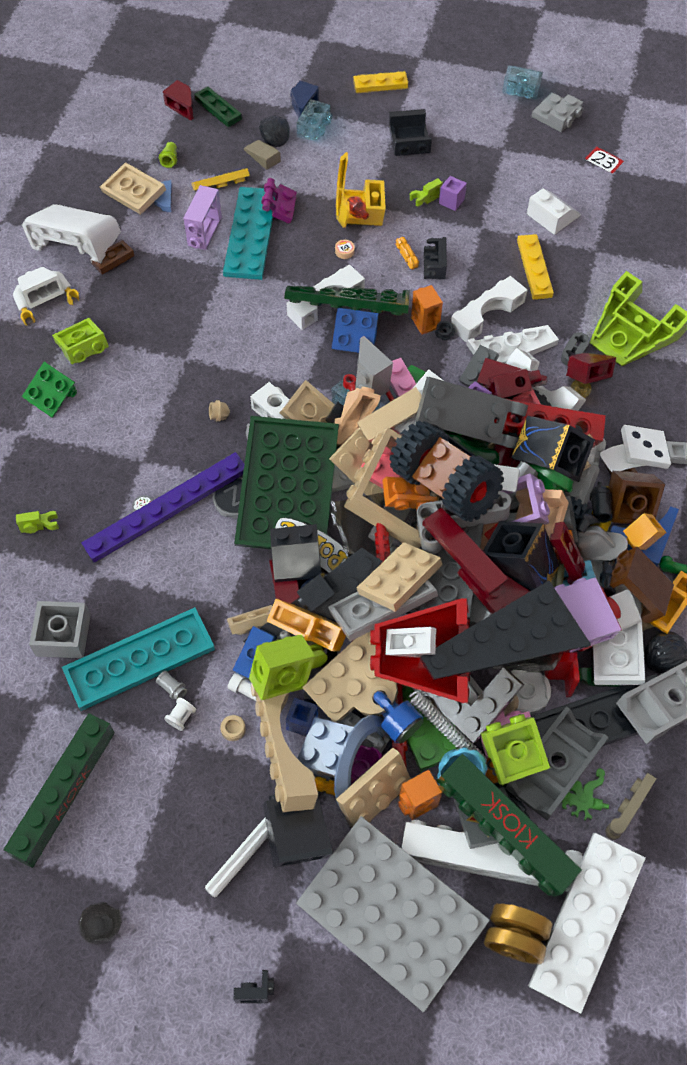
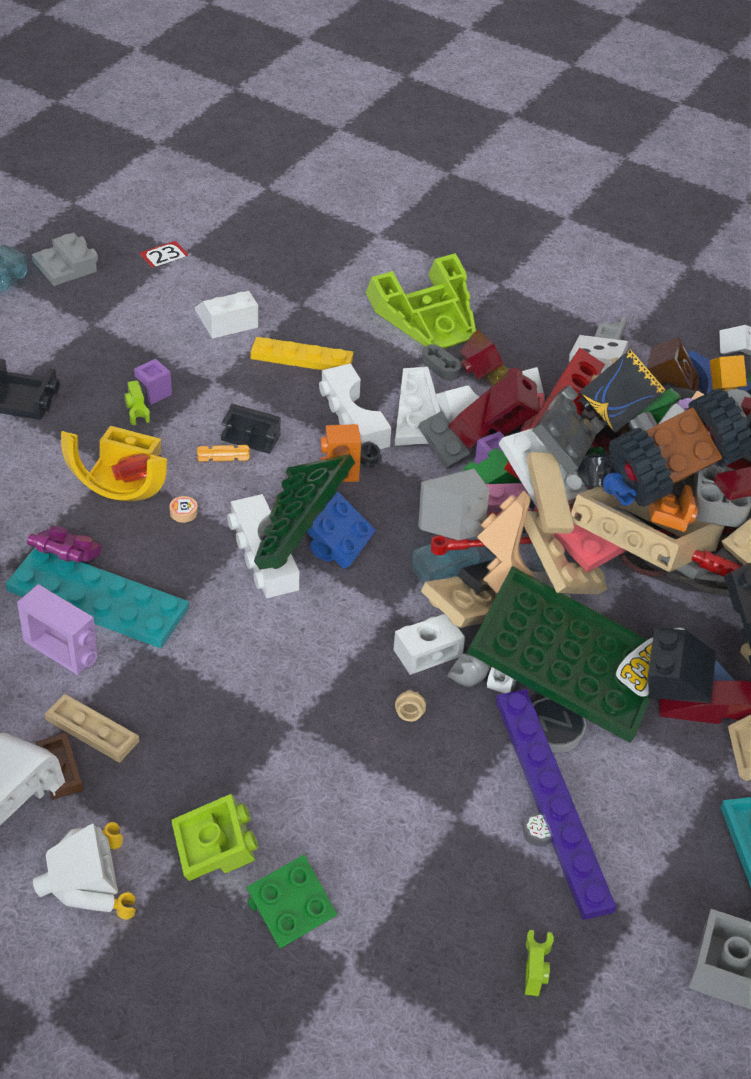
camera: 75 degrees left, 15 degrees down
(147, 263) = (92, 728): none -> tan tile

